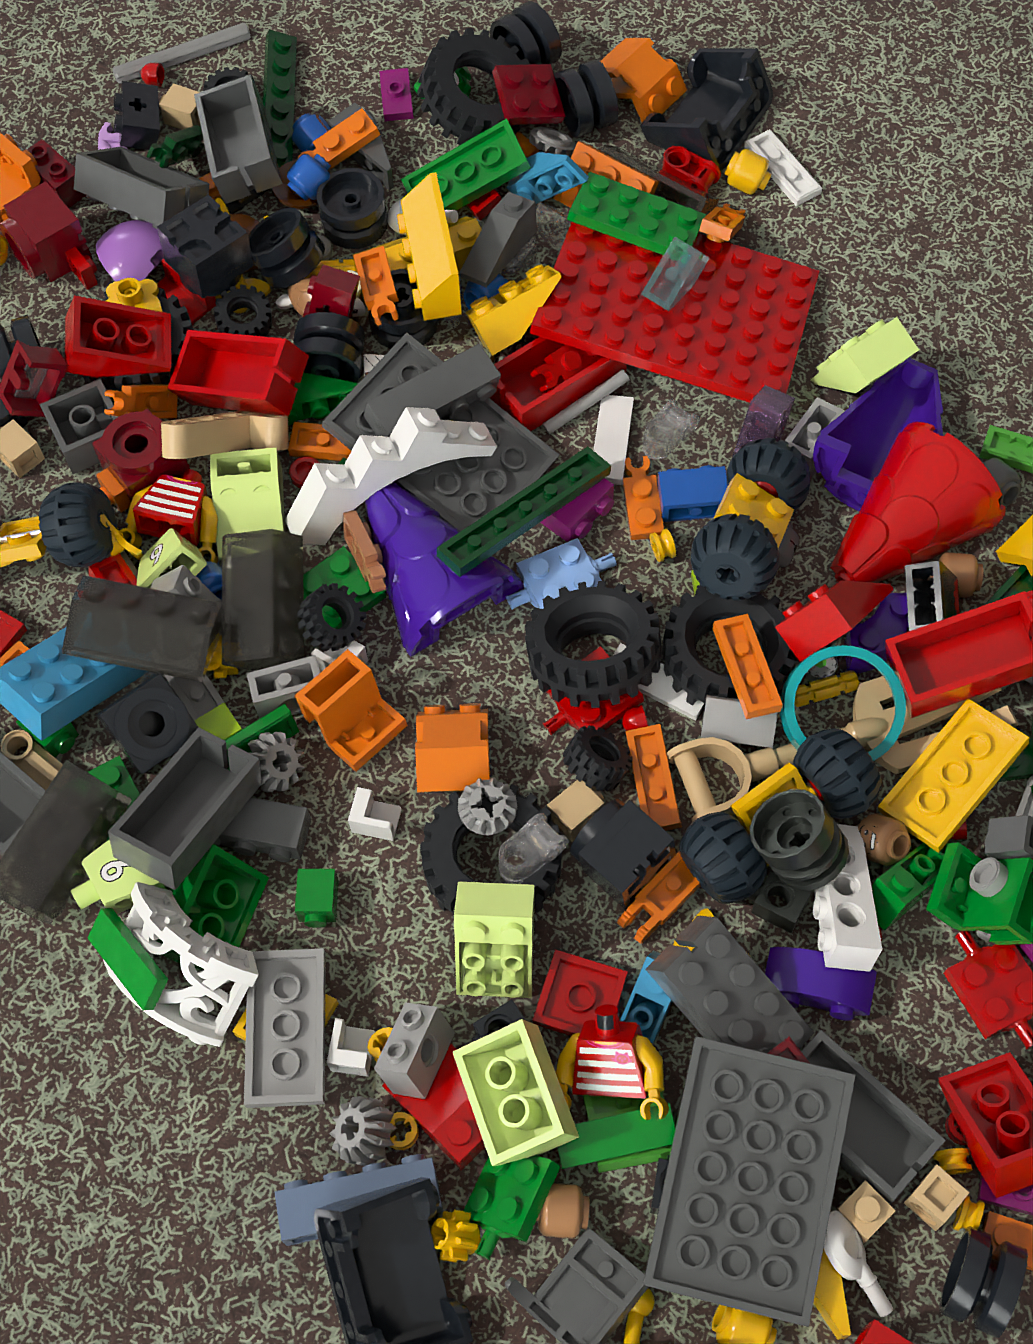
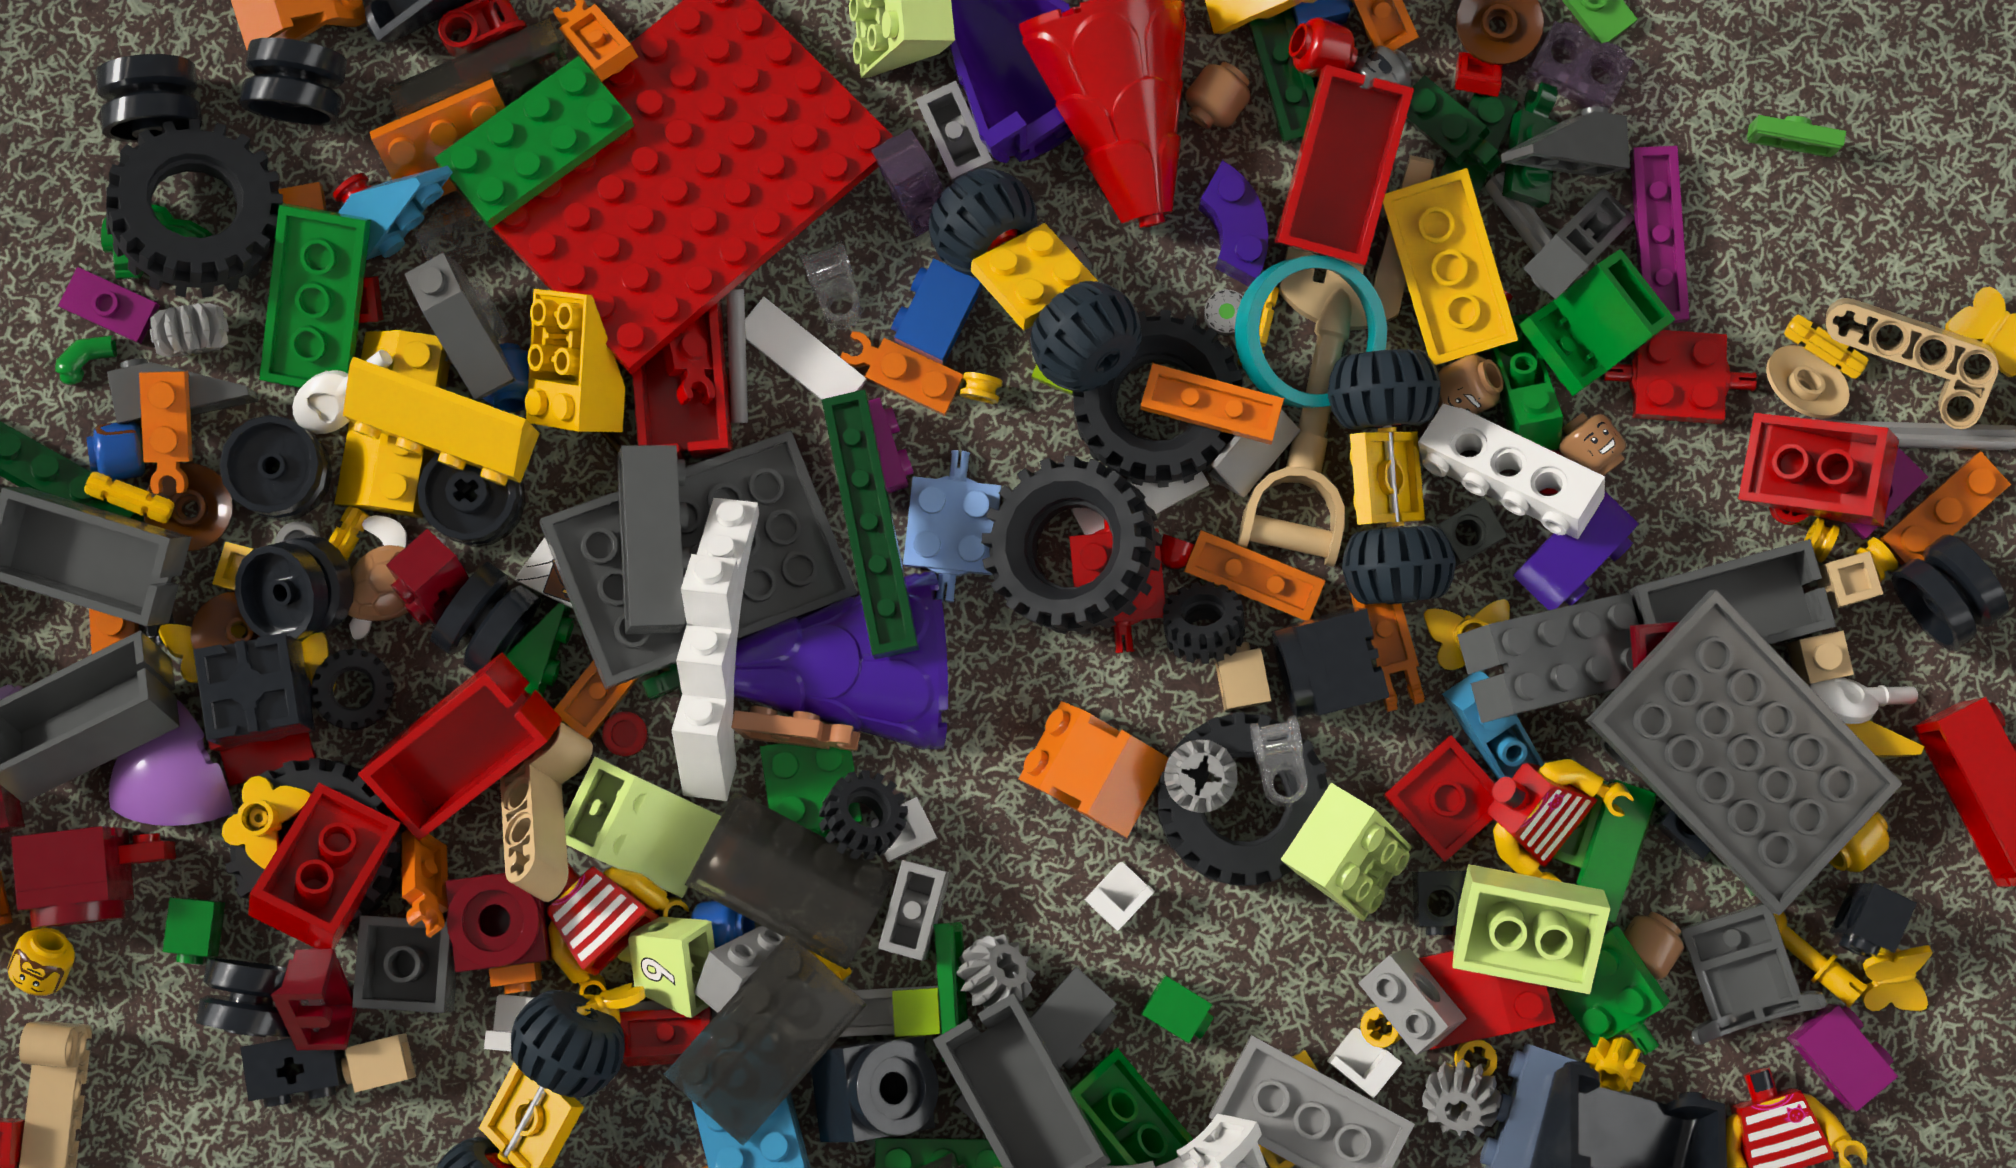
camera: 60 degrees left, 20 degrees up
(46, 312) = (193, 929): none -> green brick
(178, 147) = (44, 640): dark green plate -> none
(287, 145) = (129, 497): none -> yellow axle
(307, 175) = (202, 498): blue head -> none
(350, 710) = (991, 856): orange piece -> none
(361, 95) = (72, 360): none -> green arm
(377, 283) = (437, 509): orange plate -> none
(406, 128) = (189, 330): none -> light grey gear
(528, 94) = (250, 152): dark red plate -> none
(552, 141) = (311, 164): light grey gear -> none
(675, 274) = (659, 154): clear light blue slope -> none
(799, 839) = (1424, 493): pearl dark grey wheel -> none
(829, 614) = (1212, 276): red slope -> none
(903, 950) = (1593, 443): none -> medium nougat head
(930, 598) = (1243, 150): black torso -> none
(988, 877) = (1581, 312): light grey tile -> none

